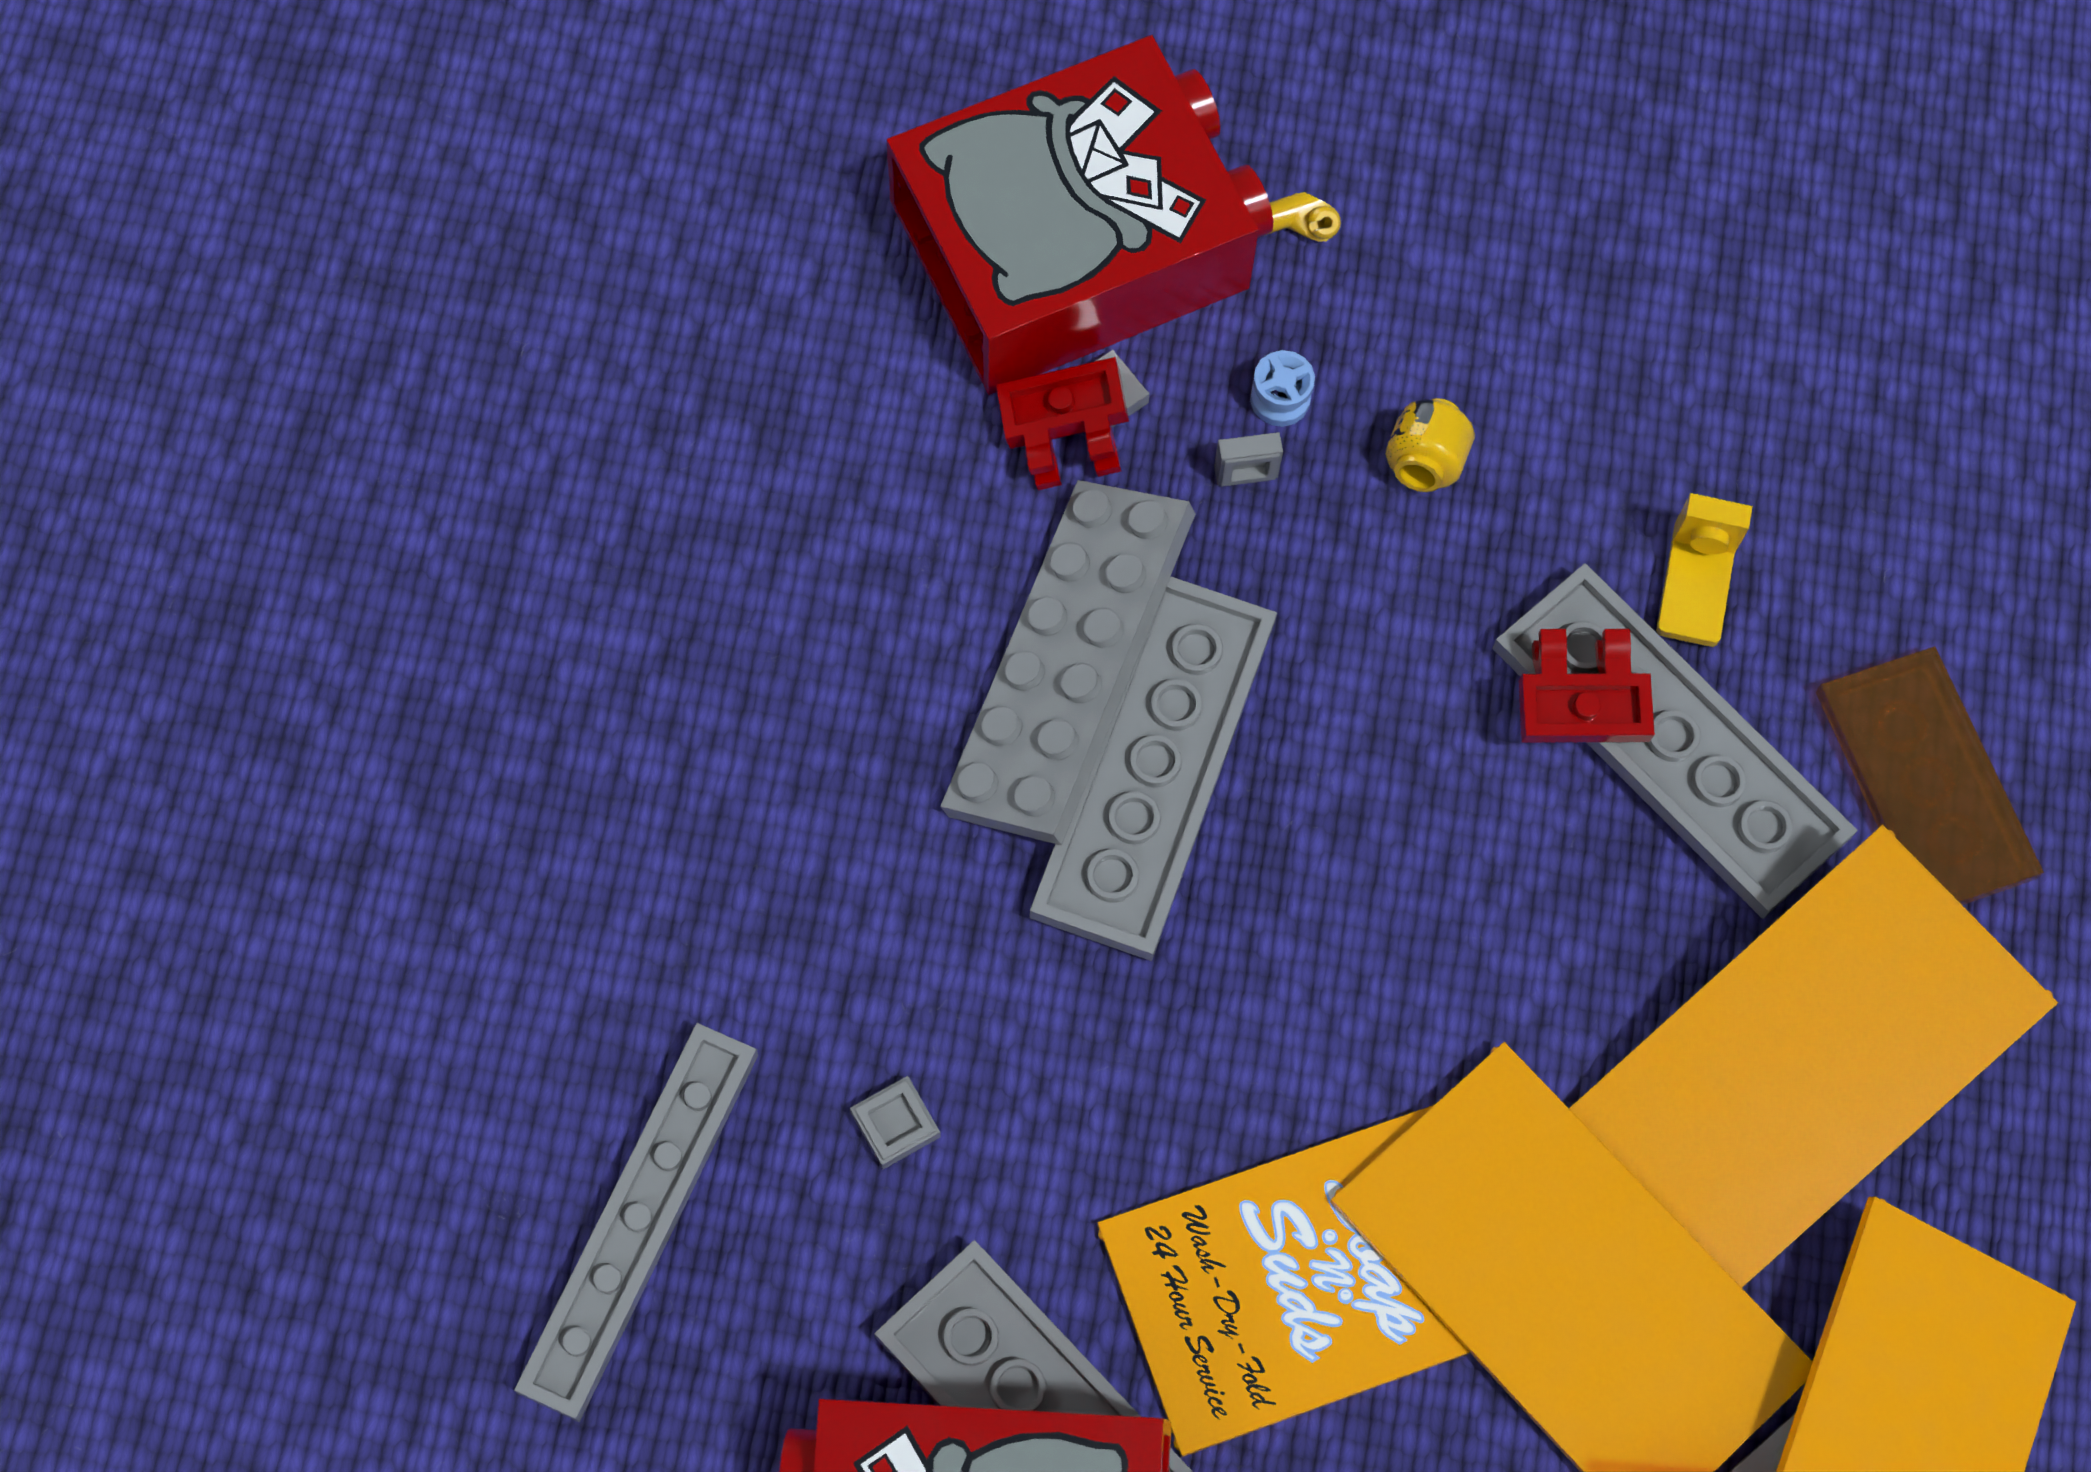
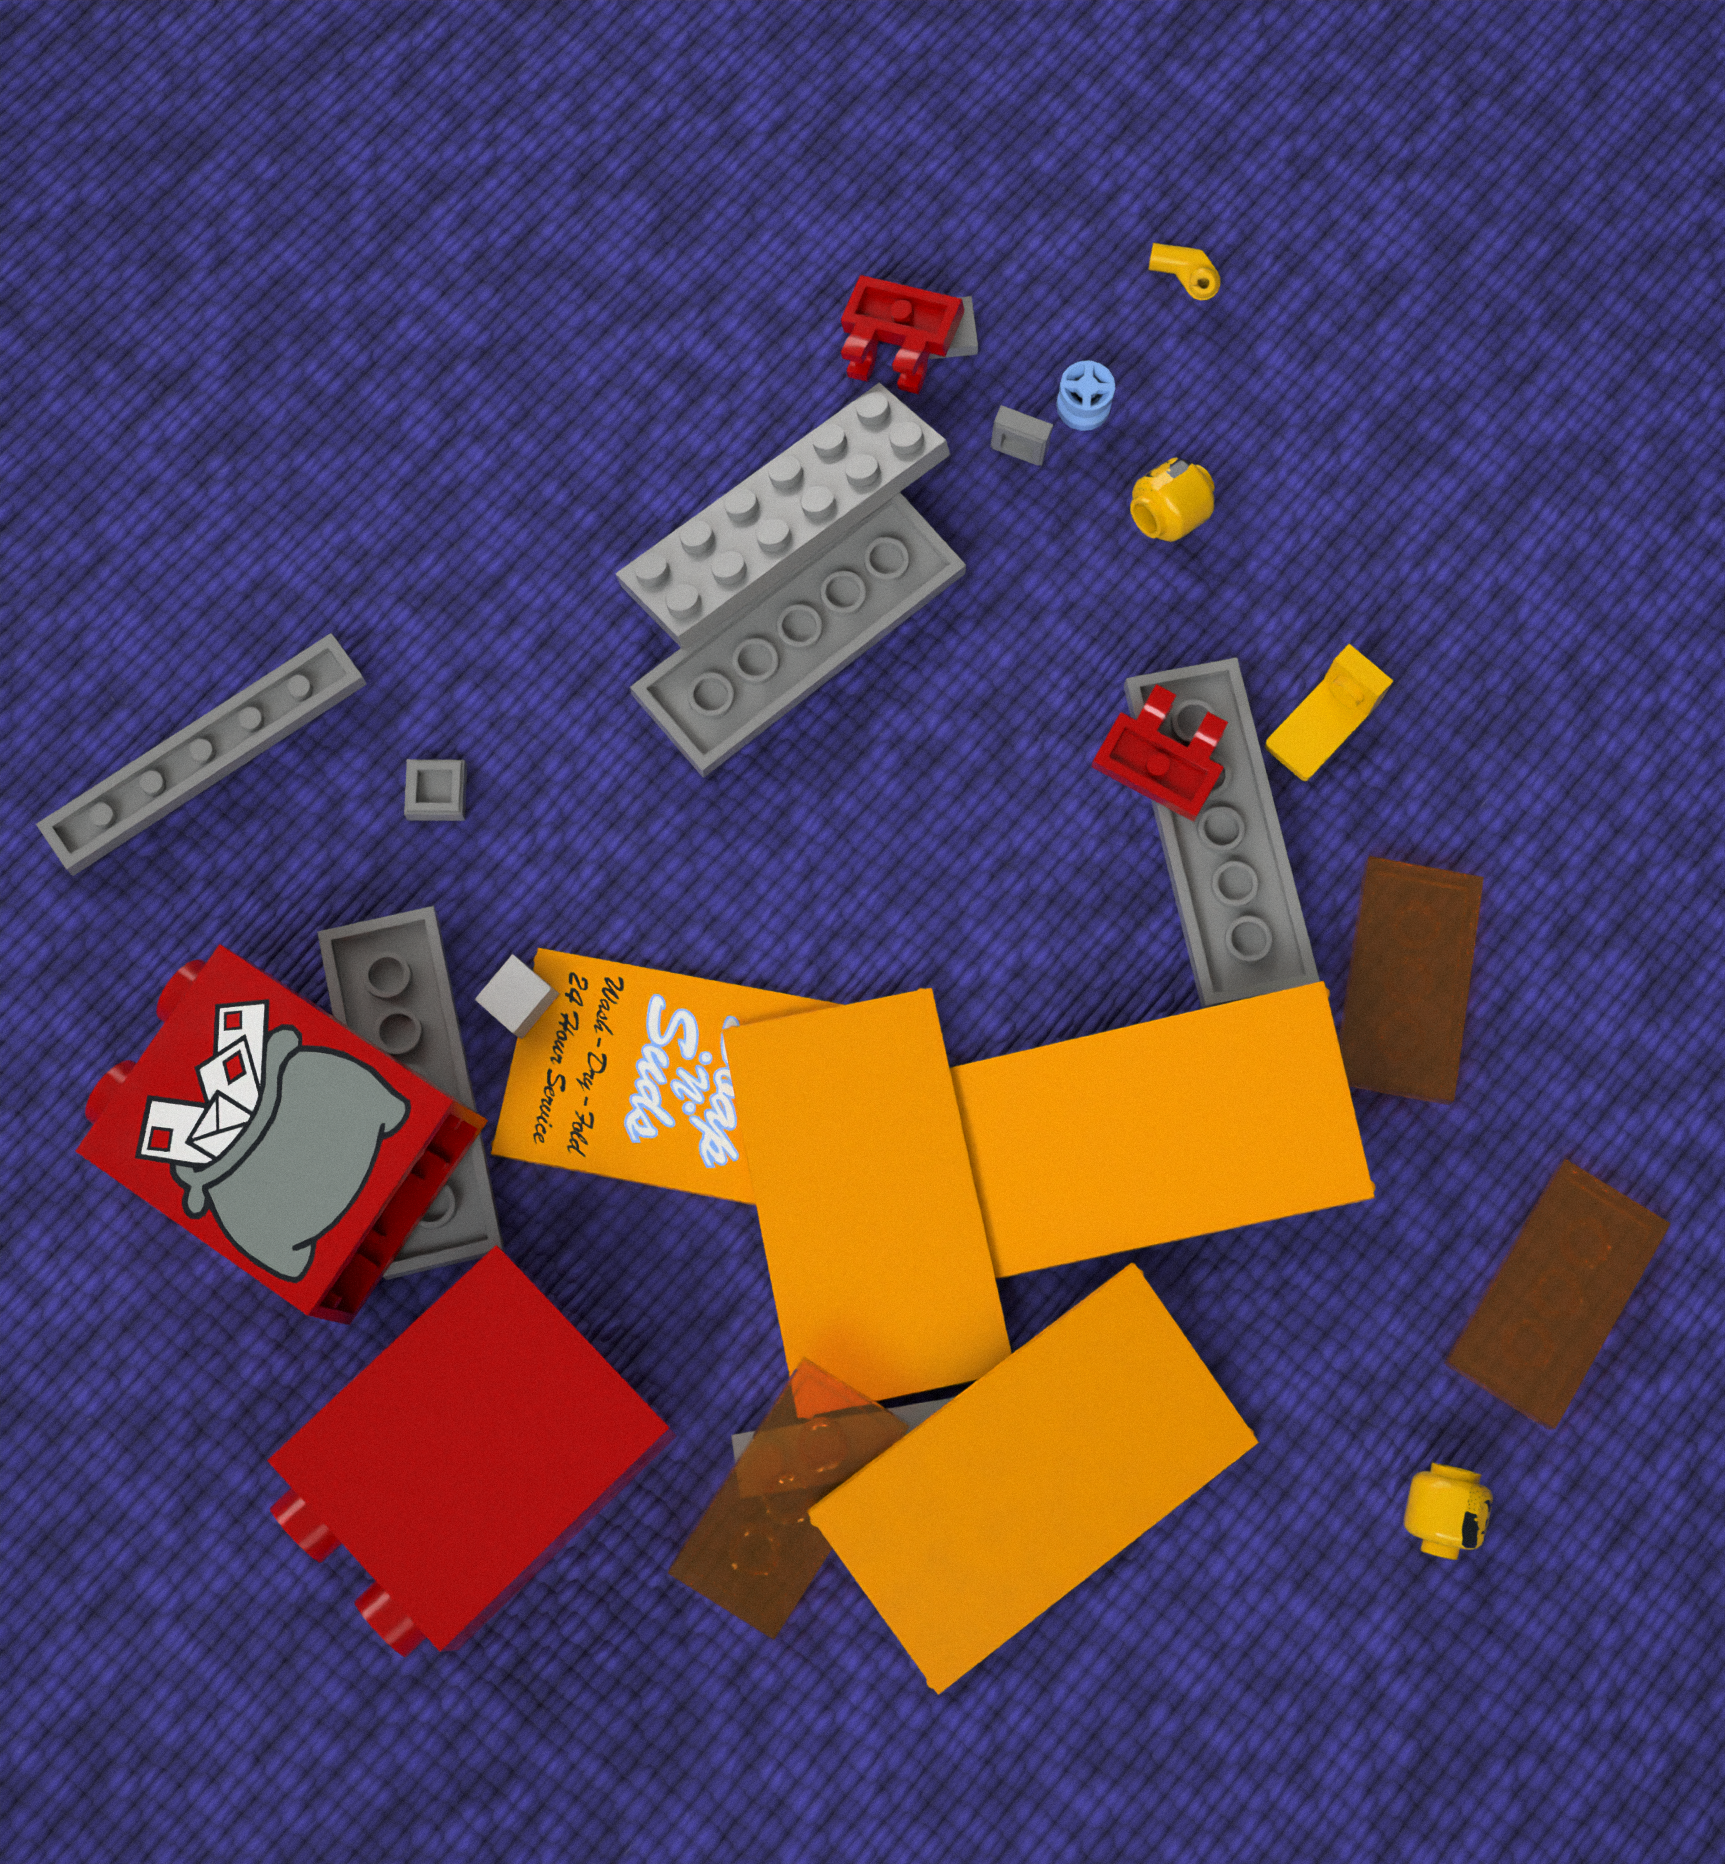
camera: 30 degrees right, 5 degrees up
(1077, 211) = (1006, 169): brick -> none
(1111, 1283) = (517, 996): none -> light grey tile

